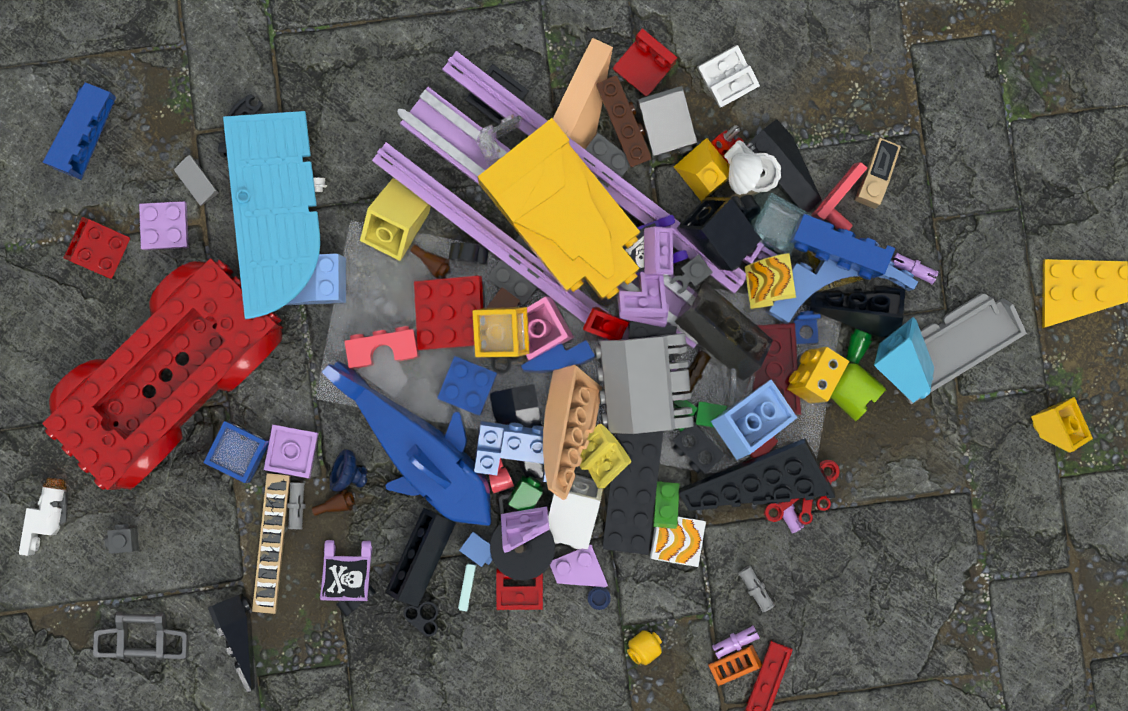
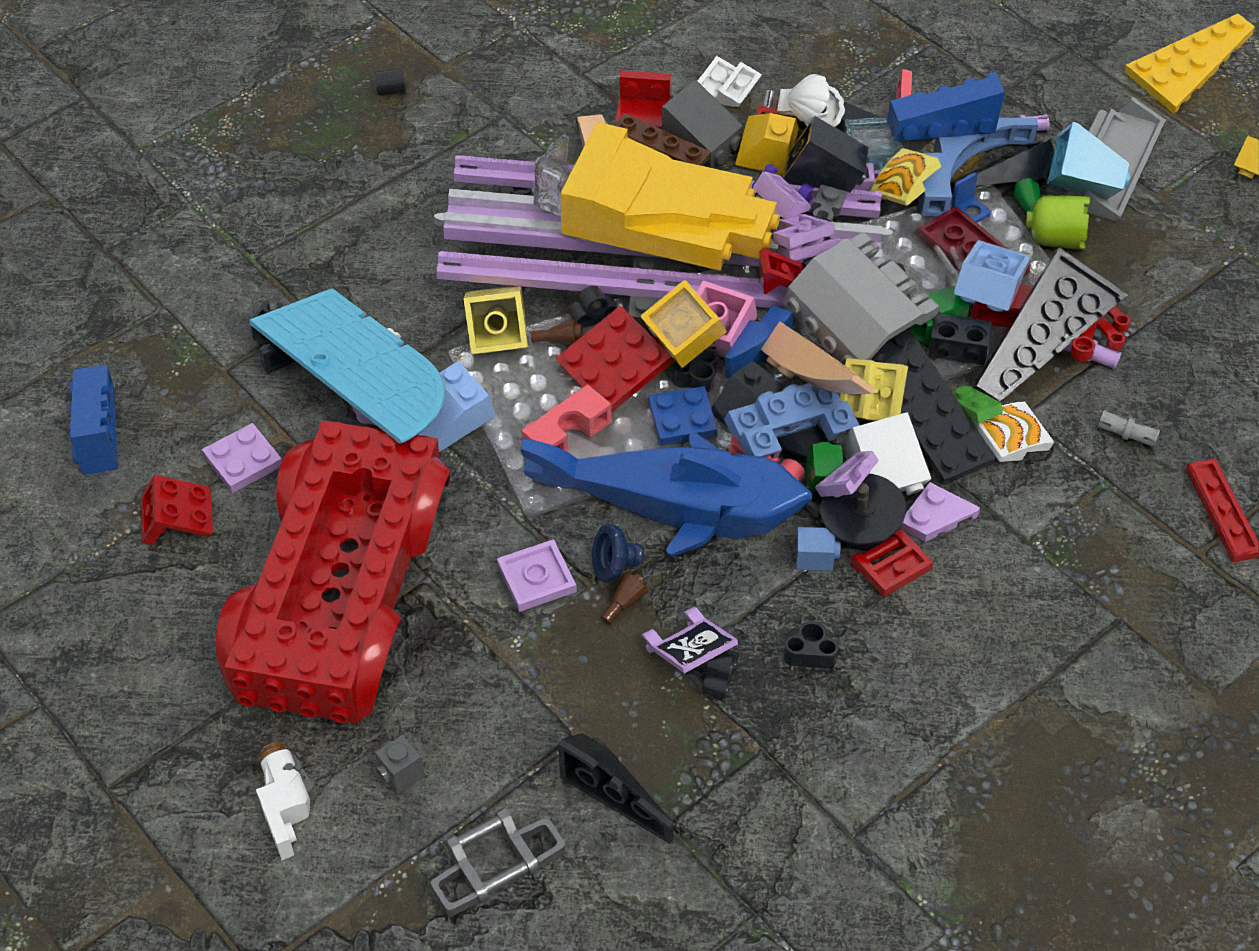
camera: 30 degrees left, 35 degrees down
(196, 180) = (253, 400): light grey slope -> none
(236, 452) = (475, 600): piece -> none
(271, 543) = (581, 677): tile -> none
(296, 506) = (581, 623): light grey pin -> none
(422, 556) = (761, 586): black brick -> none
(467, 587) = (835, 589): light aqua tile -> none
(599, 598) = (981, 524): dark blue plate -> none
(644, 647) = (1070, 537): yellow head -> none
(724, 331) = (901, 229): clear smoke slope -> none
(735, 642) = (1154, 483): lavender pin -> none
(756, 664) = (1180, 485): orange slope -> none
(817, 375) = (1017, 214): yellow piece -> none
(878, 174) = (925, 75): tan slope -> none

